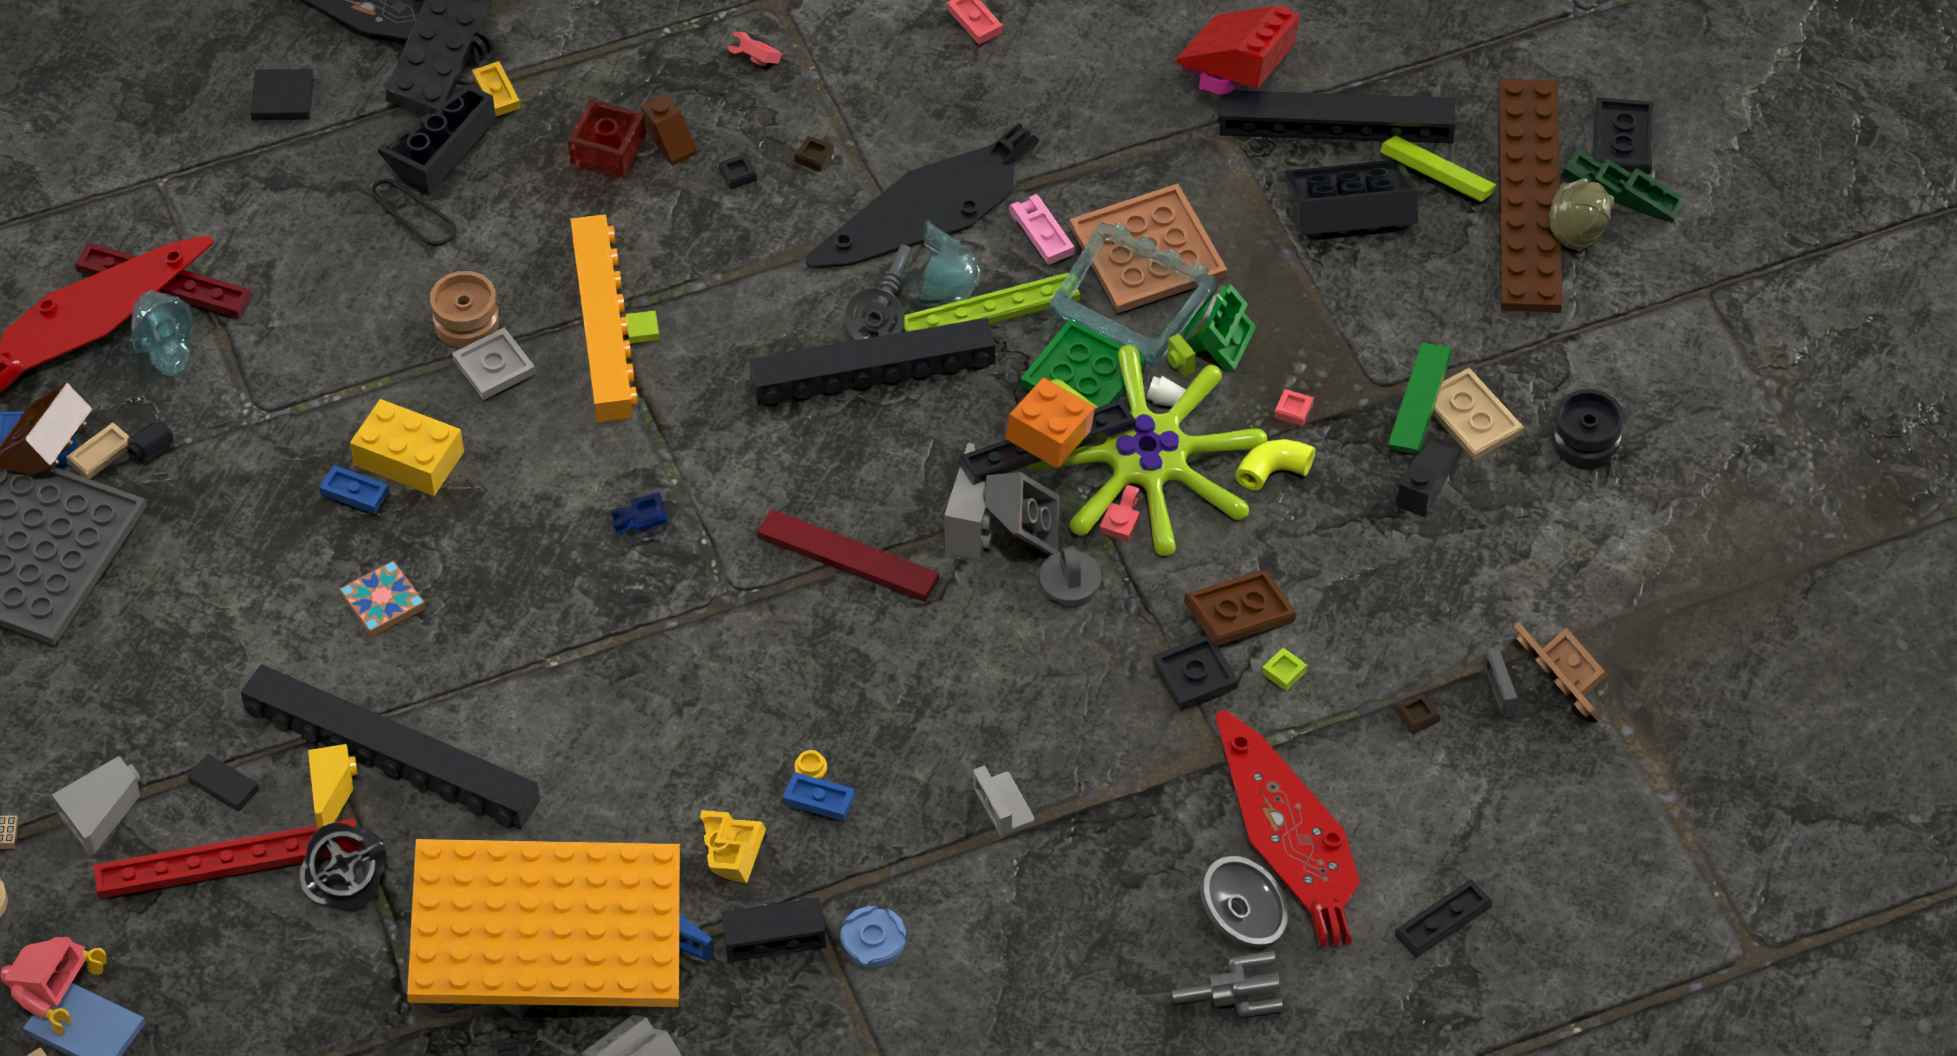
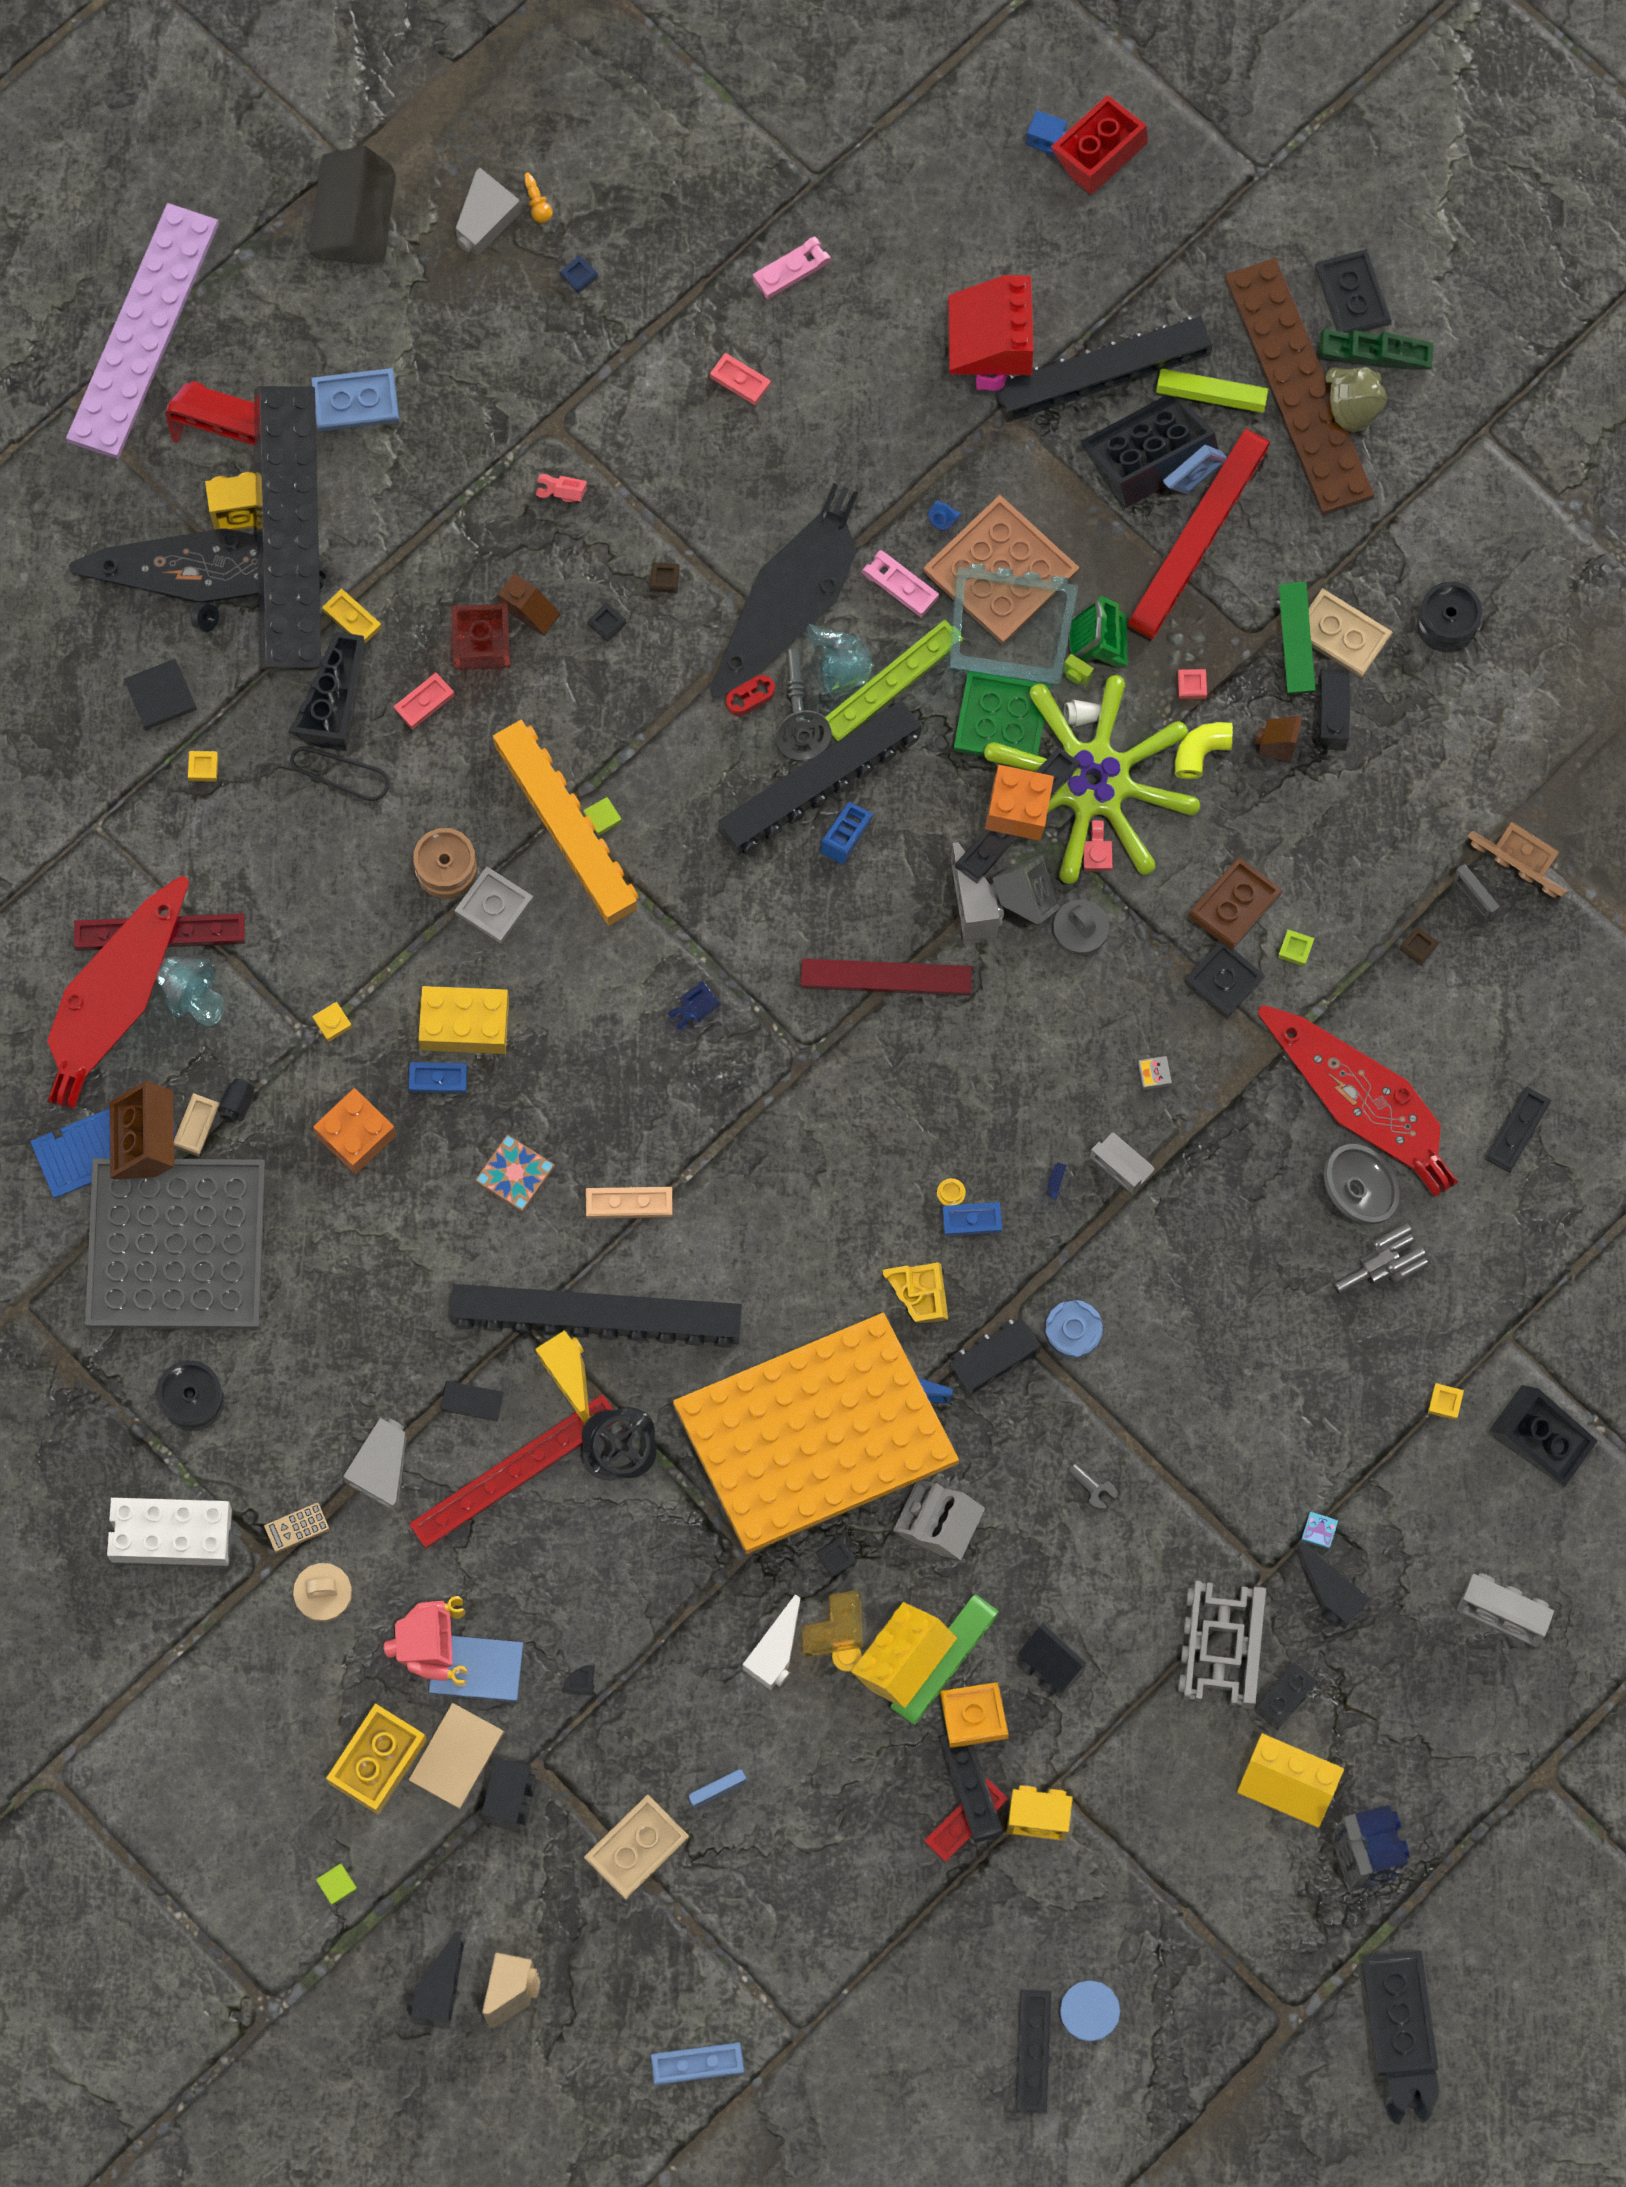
camera: 25 degrees left, 20 degrees up
(246, 504) = (354, 1131): none -> orange brick
(282, 410) = (332, 1022): none -> yellow plate
(285, 161) = (203, 766): none -> yellow plate
(359, 44) = (204, 616): none -> black tile
(480, 663) = (629, 1202): none -> light nougat tile
(524, 176) = (424, 701): none -> coral plate
(843, 274) = (747, 690): none -> red beam
(861, 431) = (838, 848): none -> blue slope
(924, 790) = (1056, 1180): none -> clear blue tile
(1079, 732) = (1154, 1073): none -> light grey tile
(1113, 187) = (943, 516): none -> blue plate
(1359, 477) = (1279, 737): none -> reddish brown slope
(1363, 281) = (1198, 534): none -> red beam
(1383, 216) = (1195, 469): none -> medium blue tile

